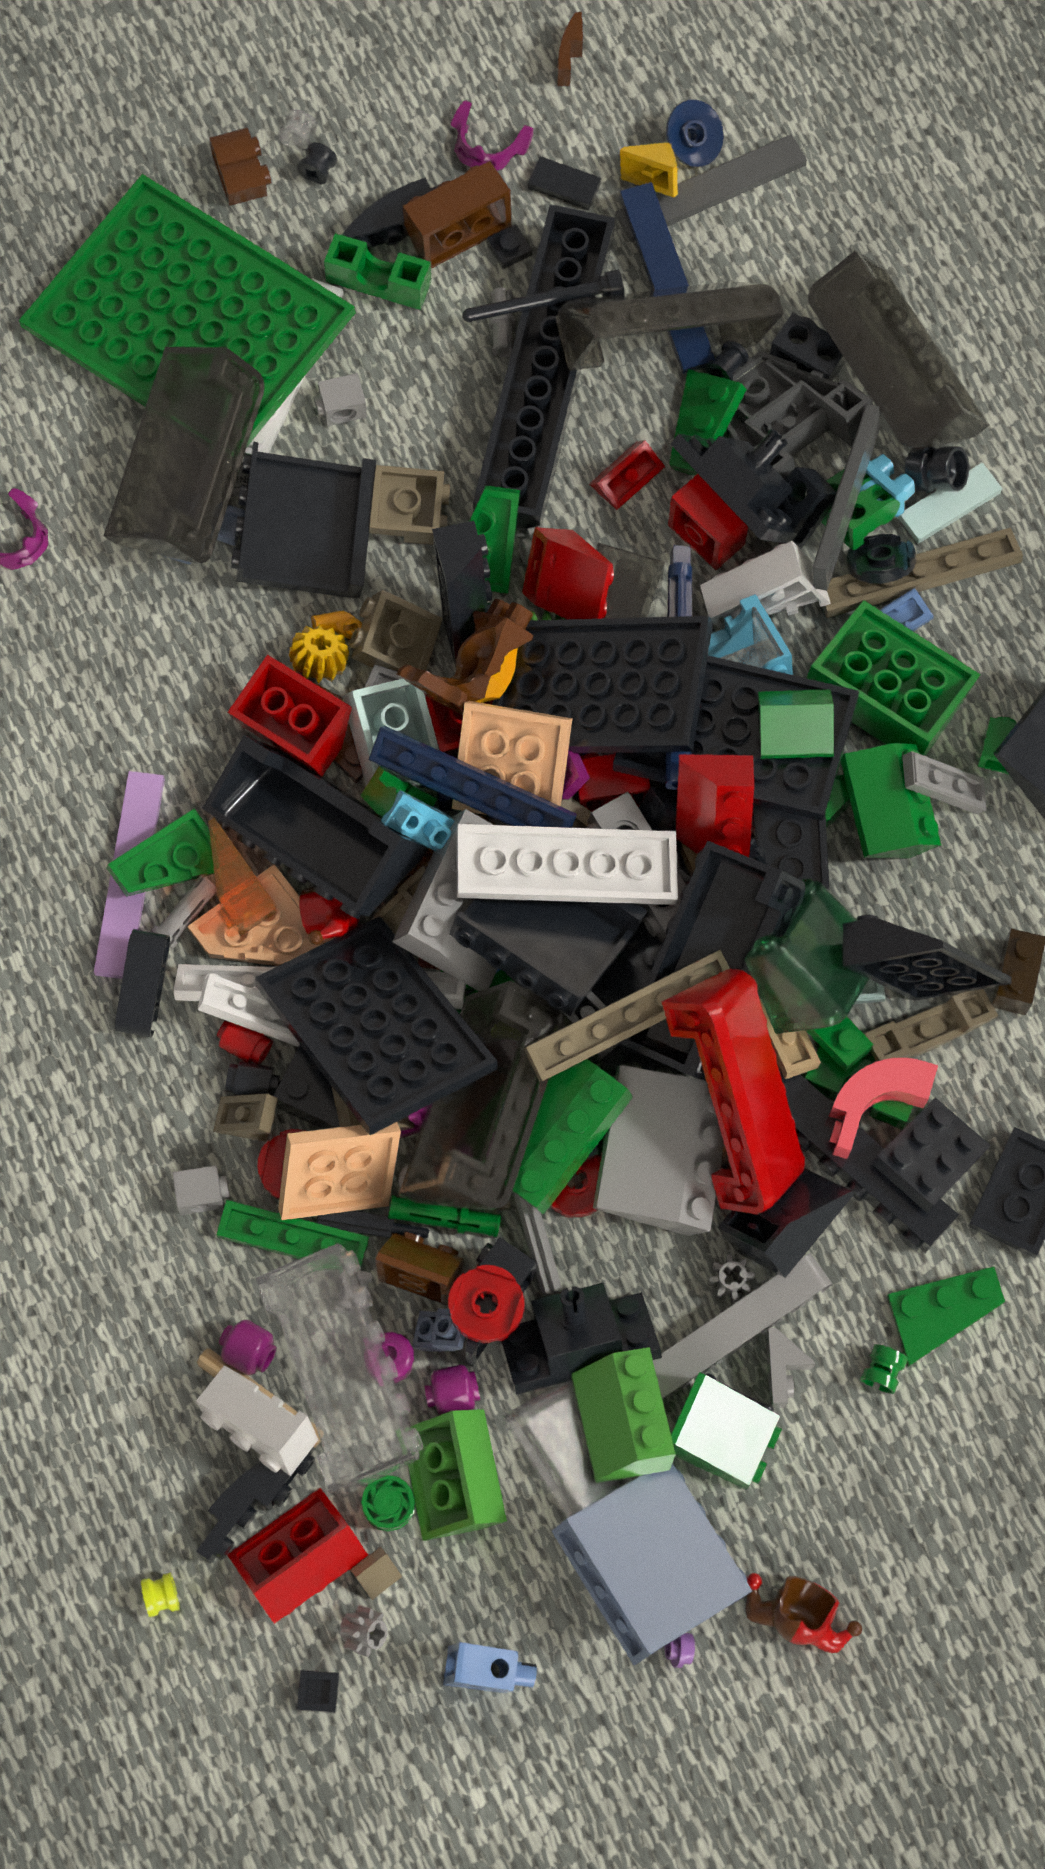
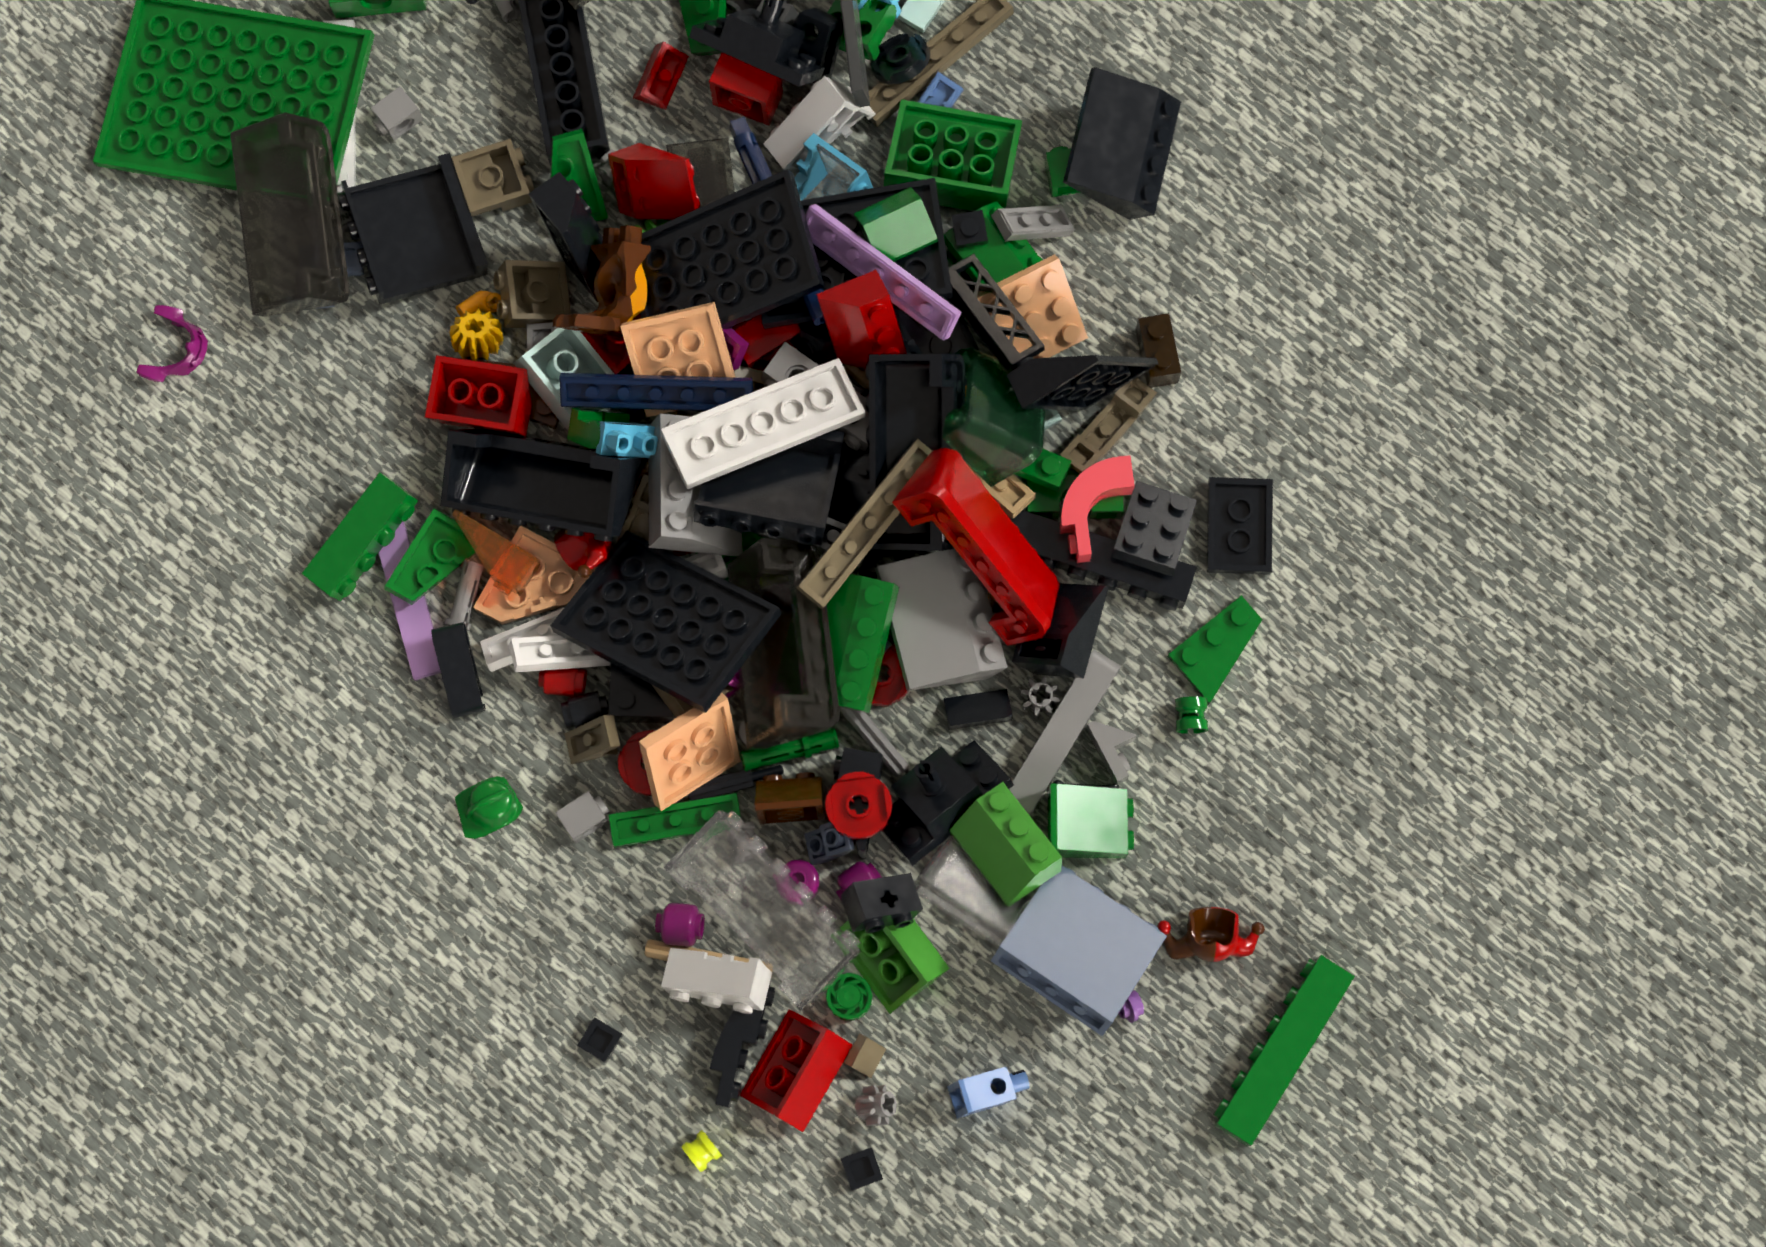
camera: 20 degrees left, 5 degrees up
(106, 805) = (360, 537): none -> green brick
(107, 1137) = (487, 807): none -> green piece
(110, 1430) = (600, 1040): none -> black plate
(464, 1417) = (881, 903): none -> black brick
(660, 1262) = (978, 709): none -> black slope
(771, 782) = (862, 258): none -> lavender tile
(824, 1772) = (1284, 1049): none -> green brick
(843, 861) = (983, 324): none -> black fence
(873, 760) = (969, 229): none -> black plate
(899, 874) = (1046, 305): none -> light nougat plate

